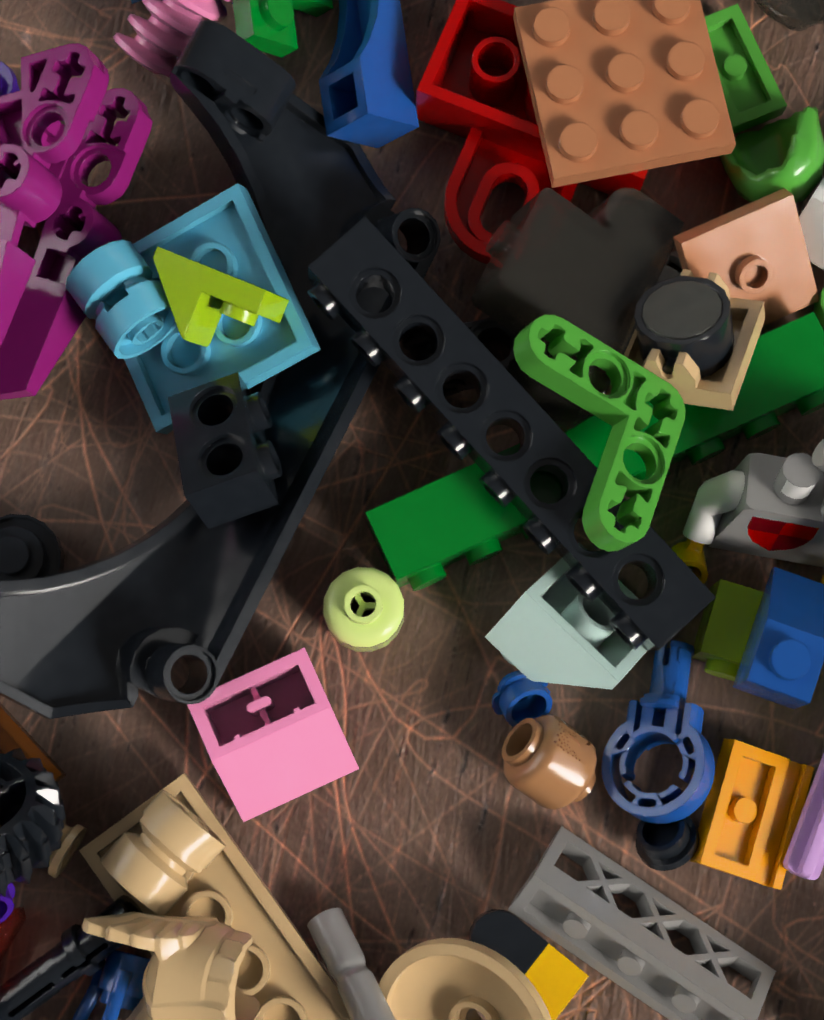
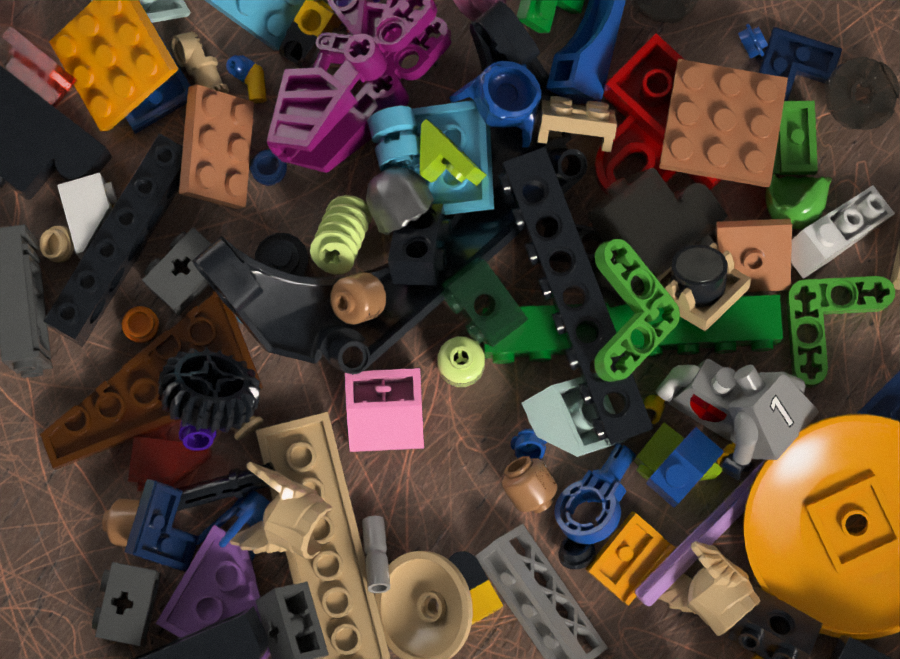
camera: 25 degrees right, 0 degrees up
(94, 483) = (340, 234): none -> yellowish green piece
(155, 861) = (301, 447): tan wheel -> none
(160, 574) = (358, 298): none -> medium nougat head
(161, 391) = (397, 198): none -> flat silver hair
(269, 167) = (505, 97): none -> blue helmet
(402, 505) = (503, 312): none -> clear green brick
(418, 152) = (591, 120): none -> tan piece

